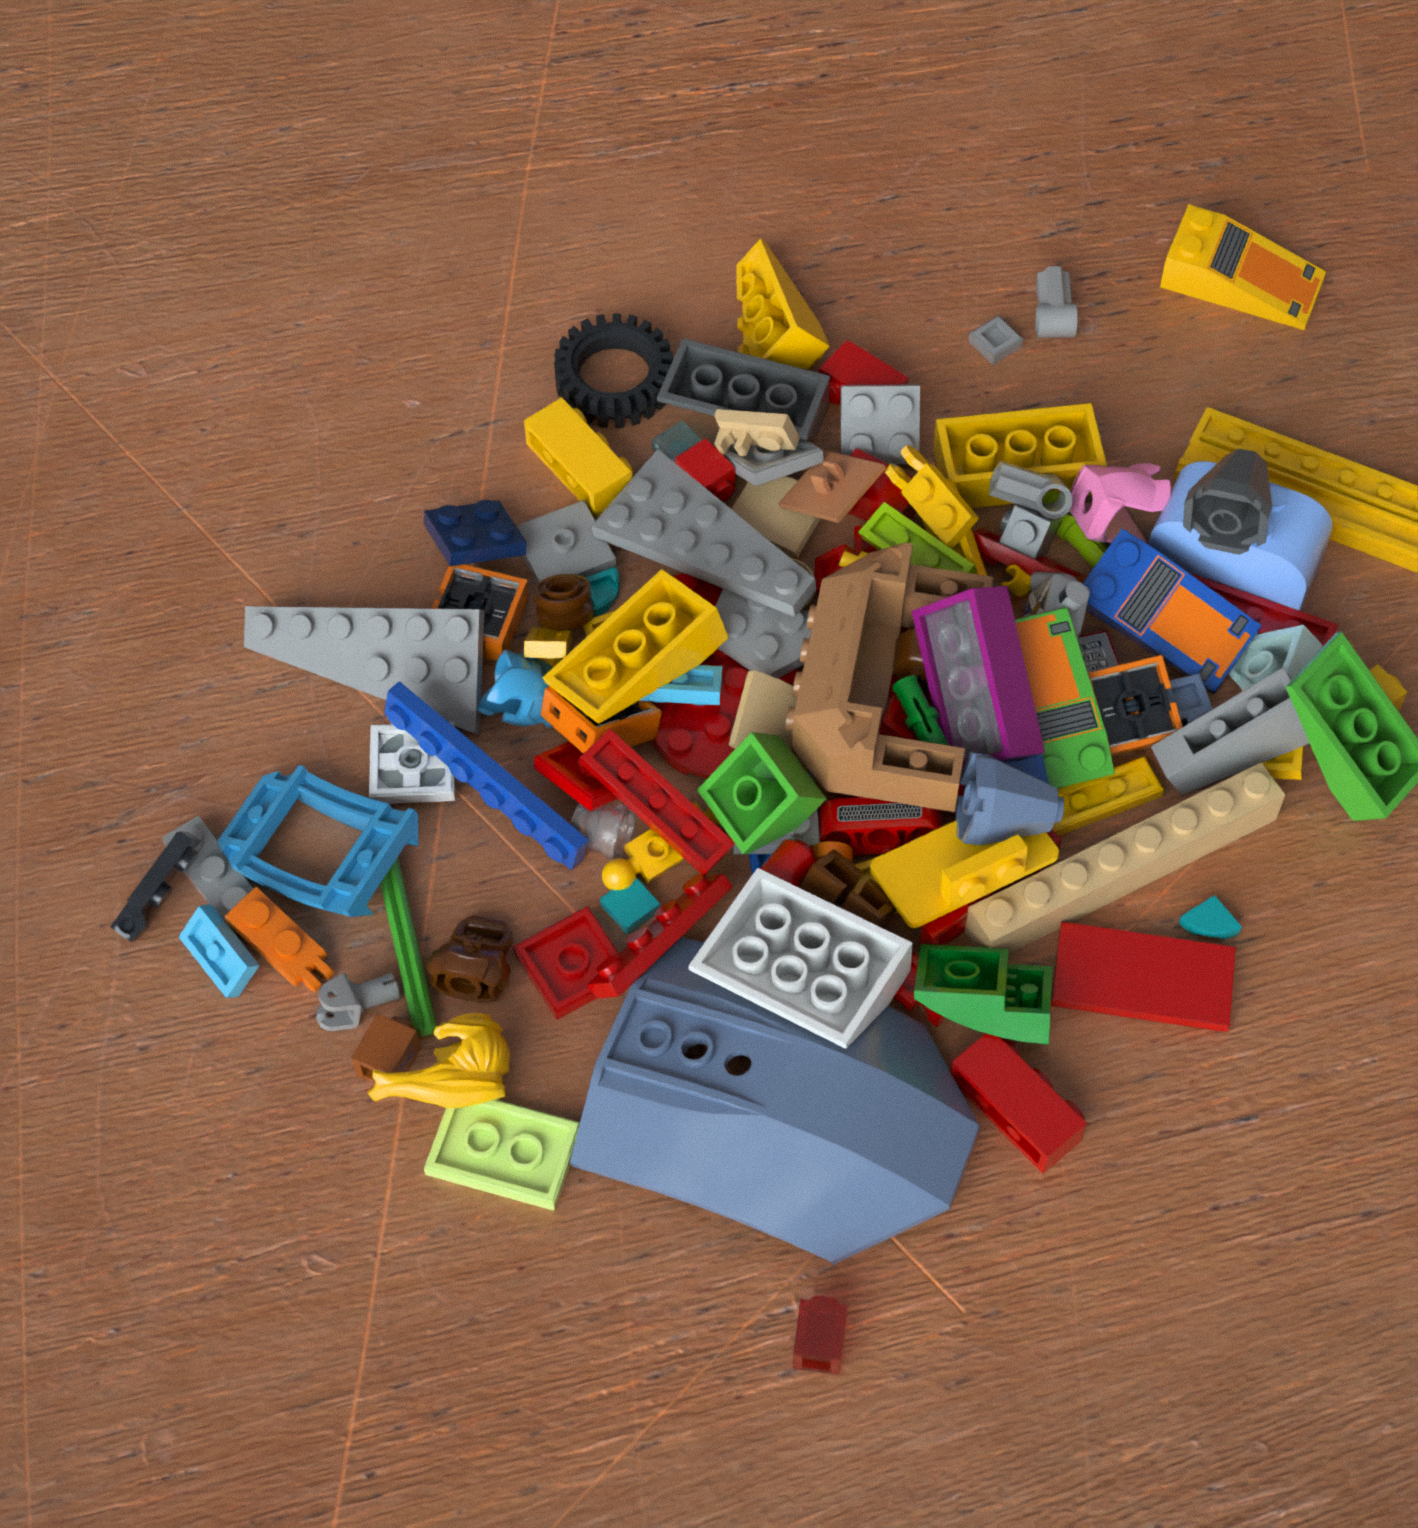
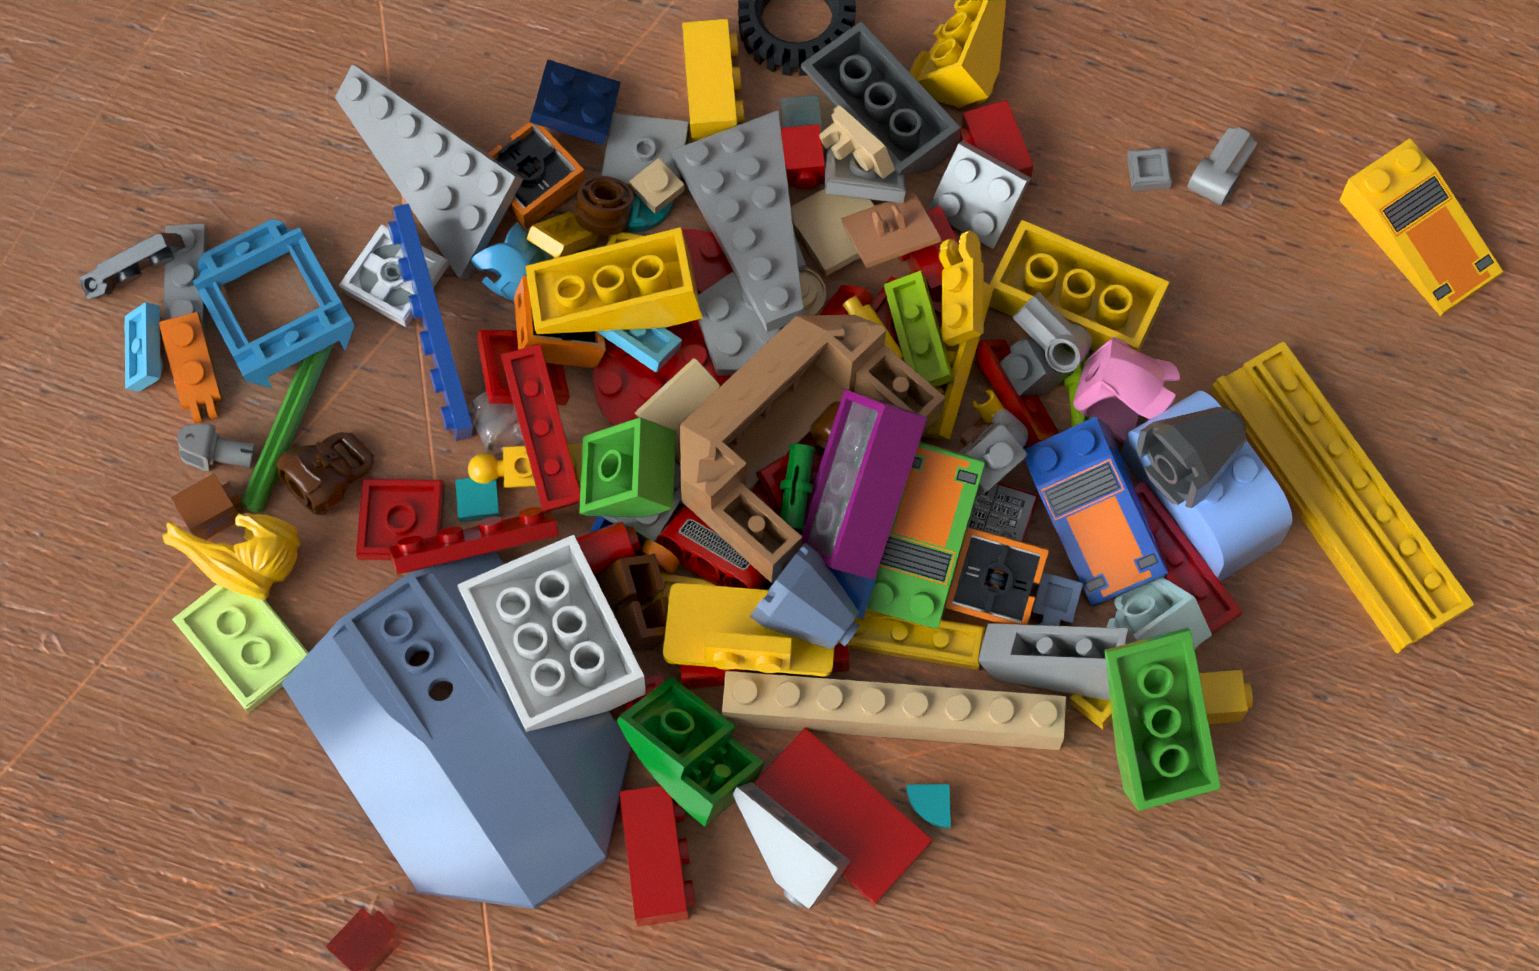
camera: 35 degrees right, 10 degrees up
(598, 561) = (656, 185): none -> tan plate
(1141, 1024) = (792, 851): none -> slope

